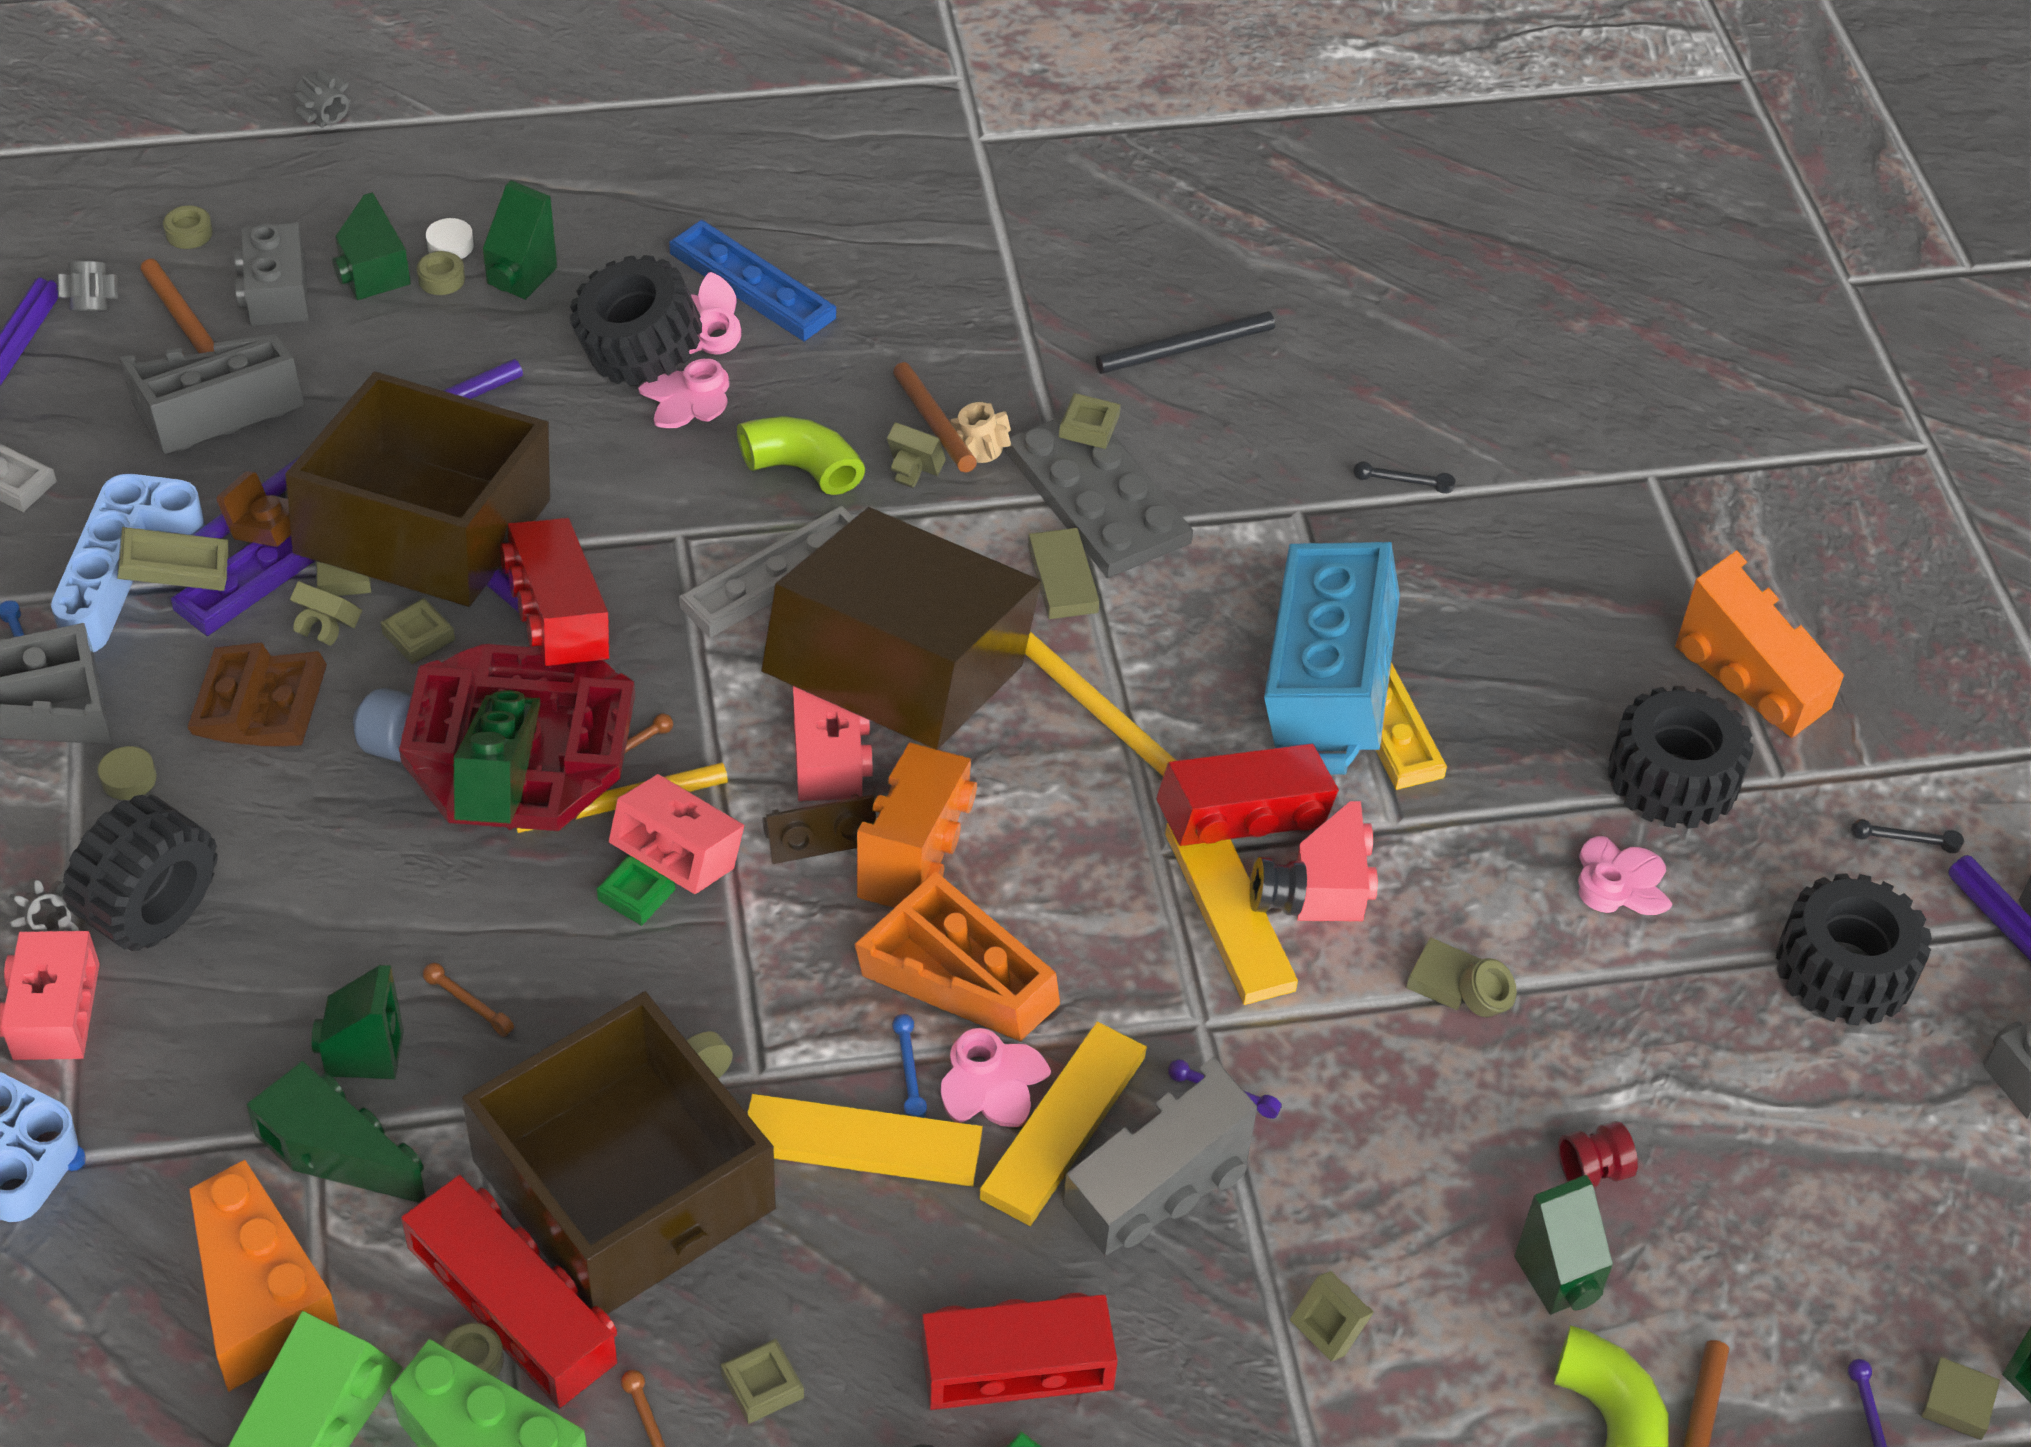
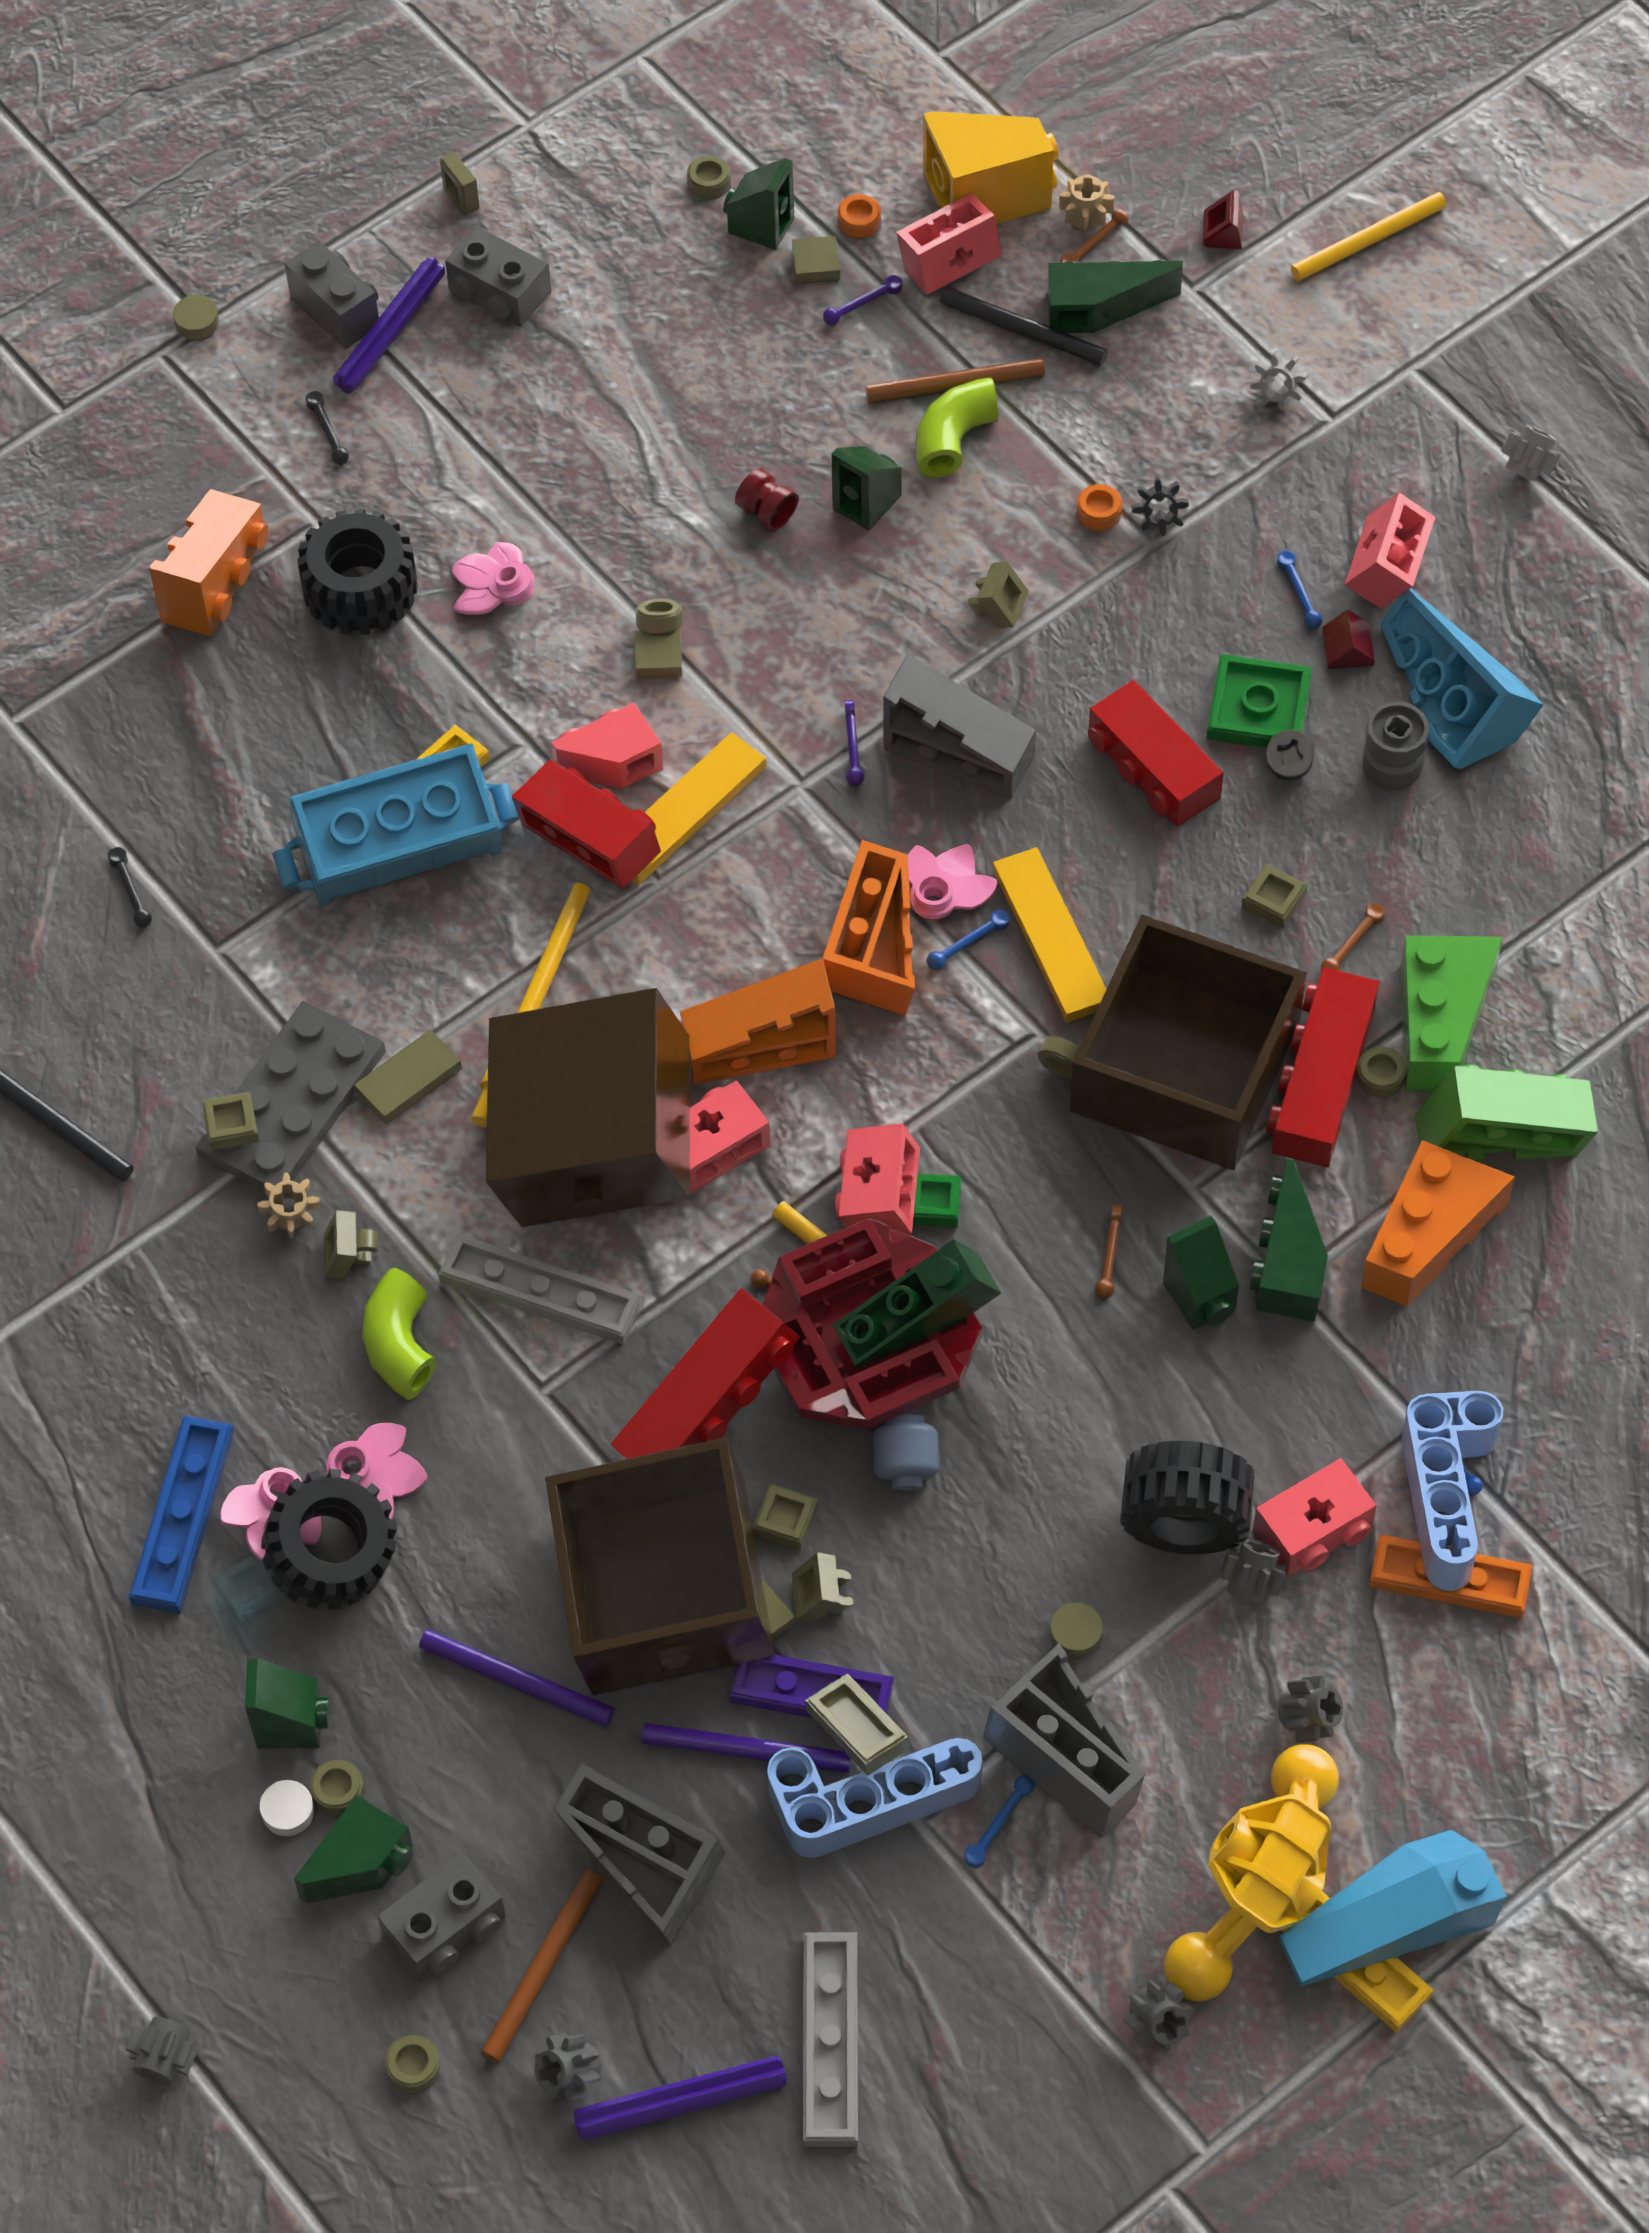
camera: 115 degrees left, 10 degrees up
(252, 513) = (754, 1699): reddish brown bracket -> none
(257, 696) = (935, 1588): reddish brown slope -> none
(817, 828) = (780, 1090): dark brown hinge -> none
(935, 417) = (294, 1246): dark orange bar -> none
(1062, 1124) = (950, 821): yellow tile -> none
(1278, 886) = (666, 763): black wheel -> none
(1841, 980) = (476, 383): black tyre -> none

